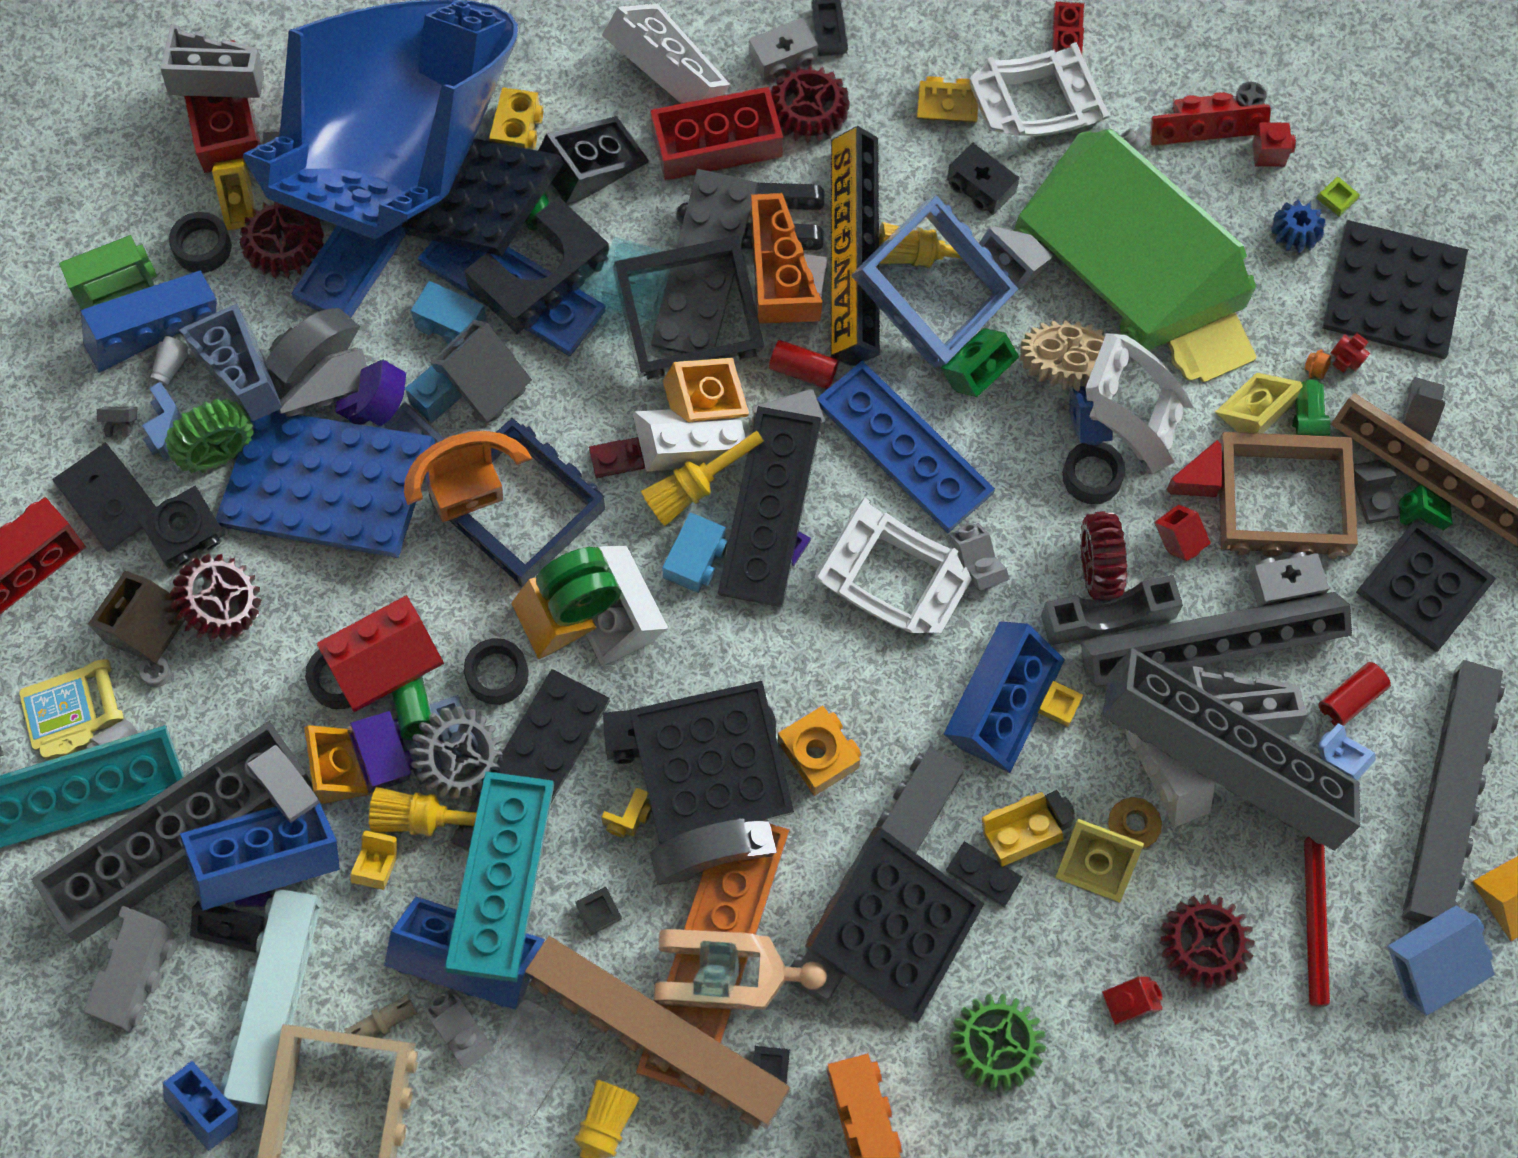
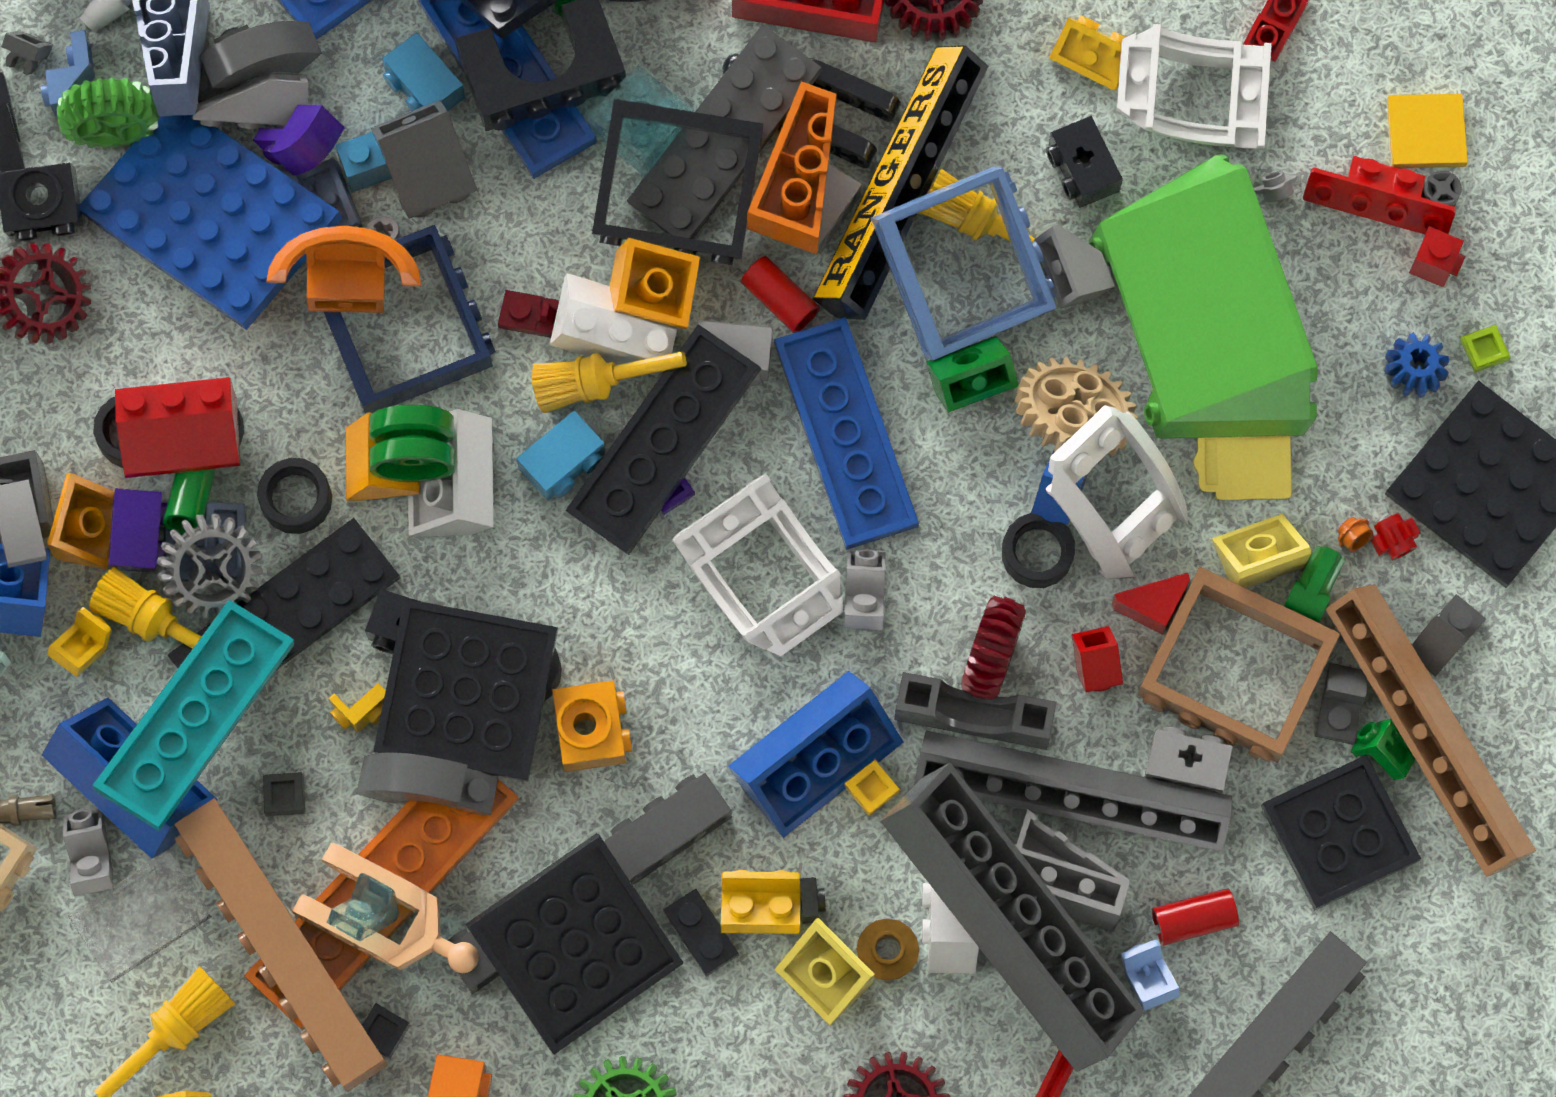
camera: 25 degrees right, 5 degrees up
(1215, 62) = (1427, 130): none -> yellow tile

